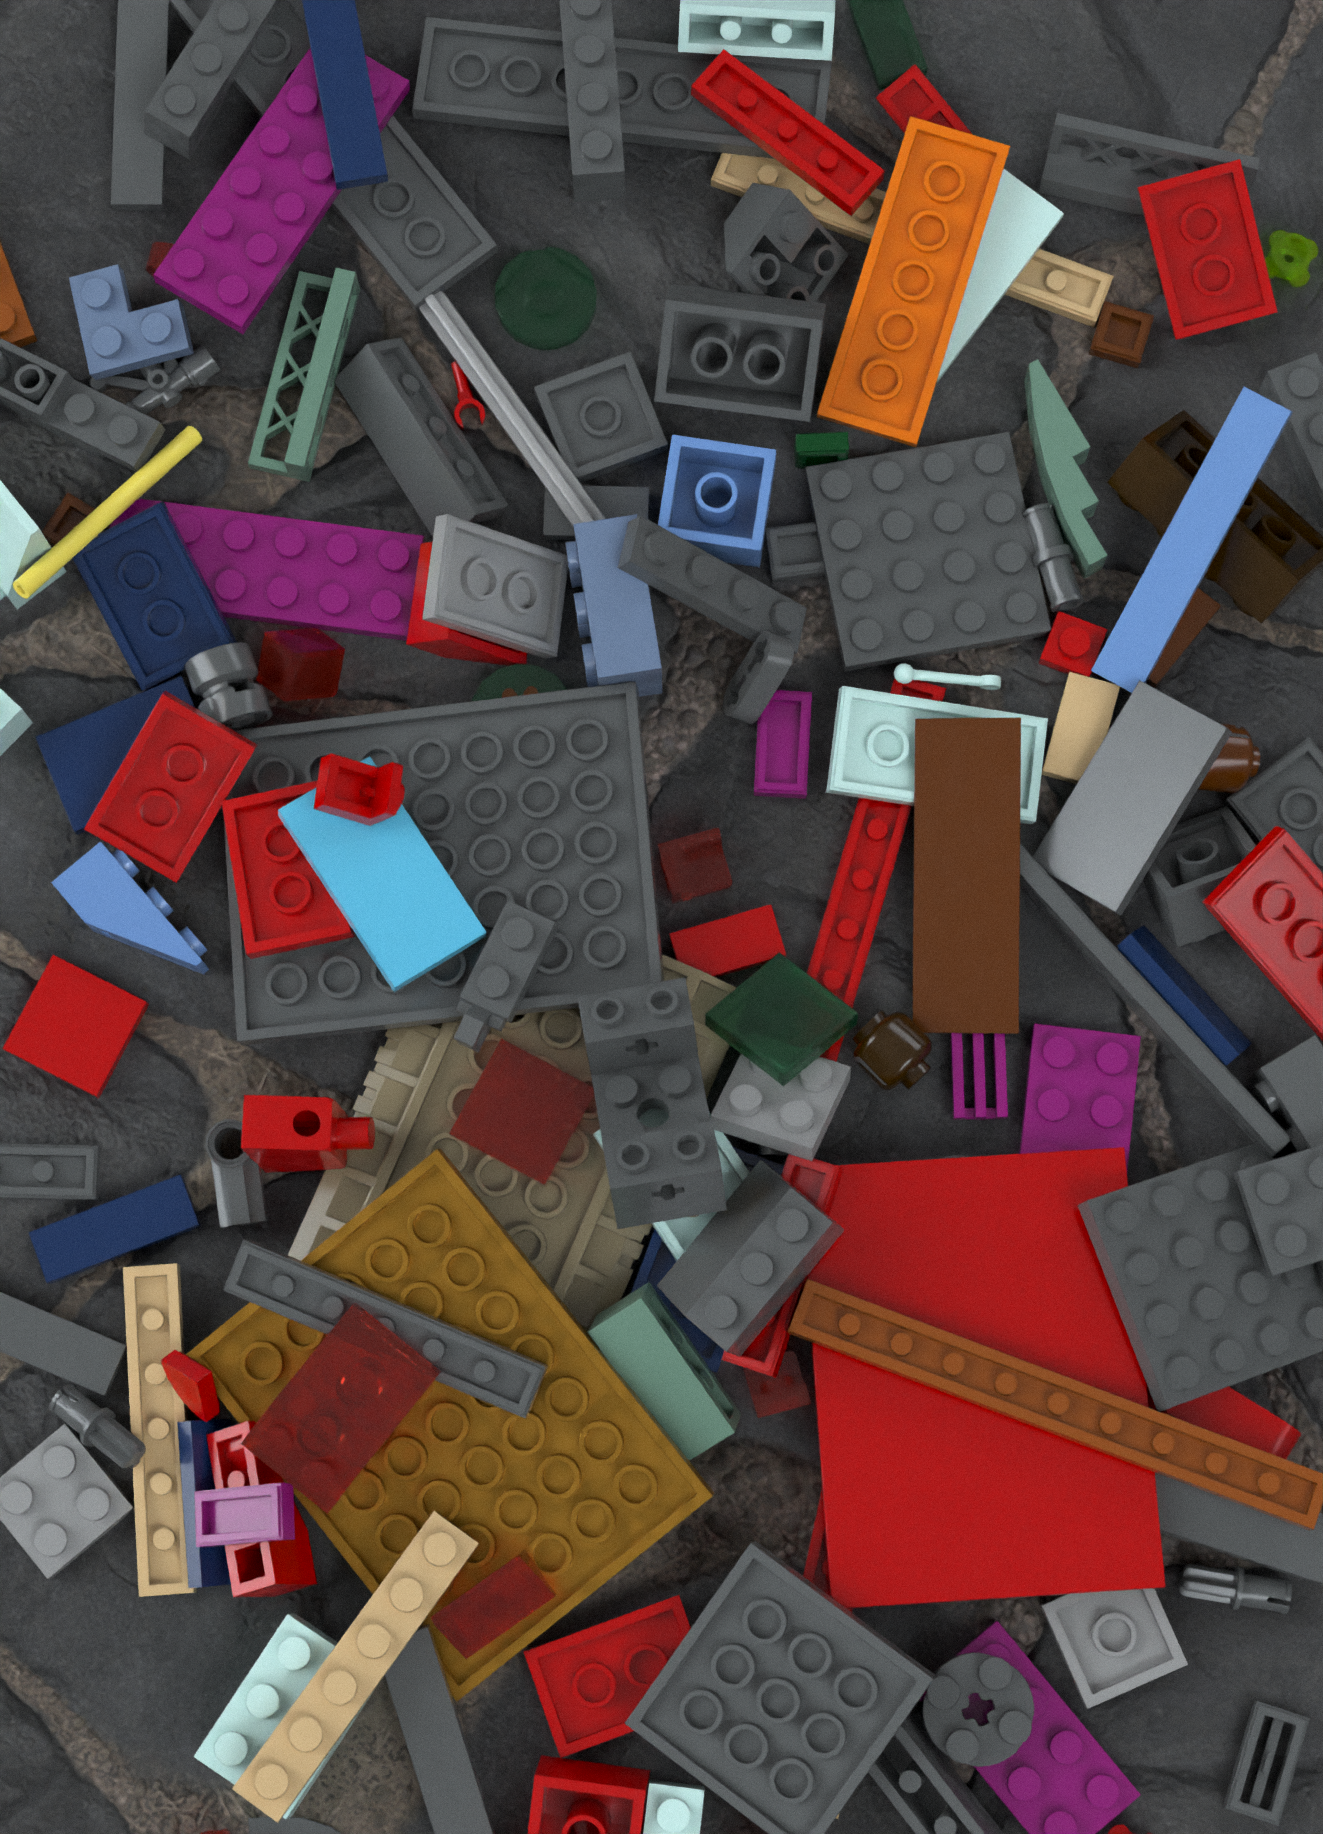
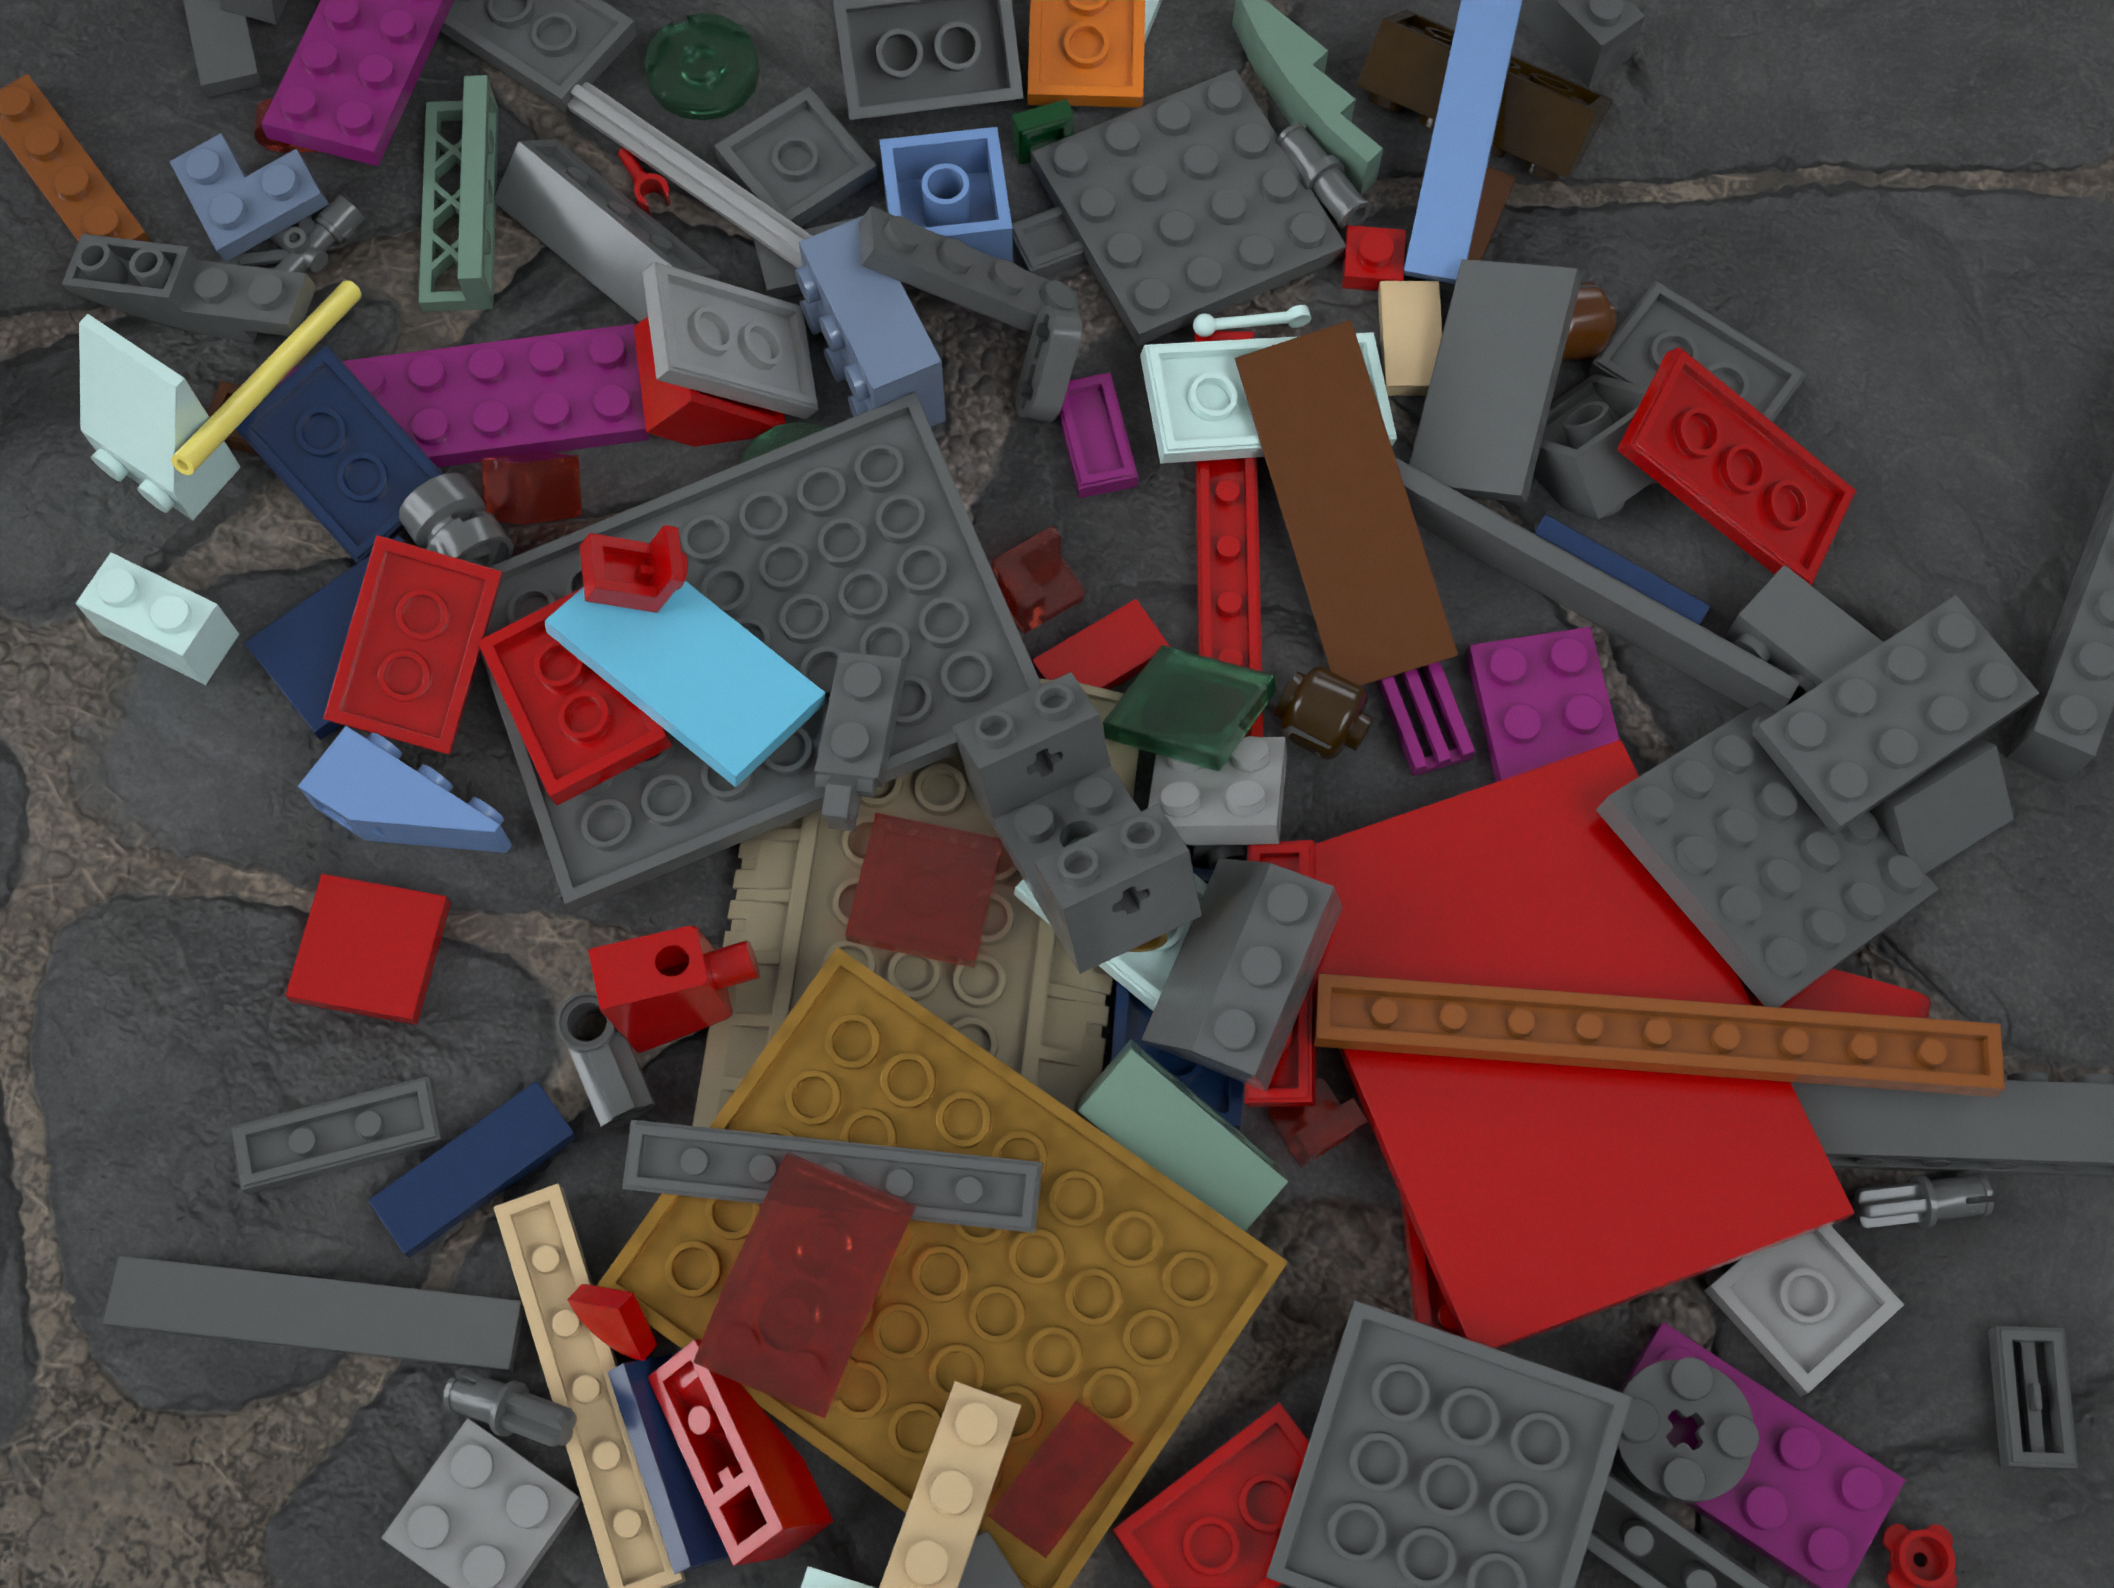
camera: 20 degrees left, 10 degrees down
(244, 1515) = (721, 1455): tile -> none

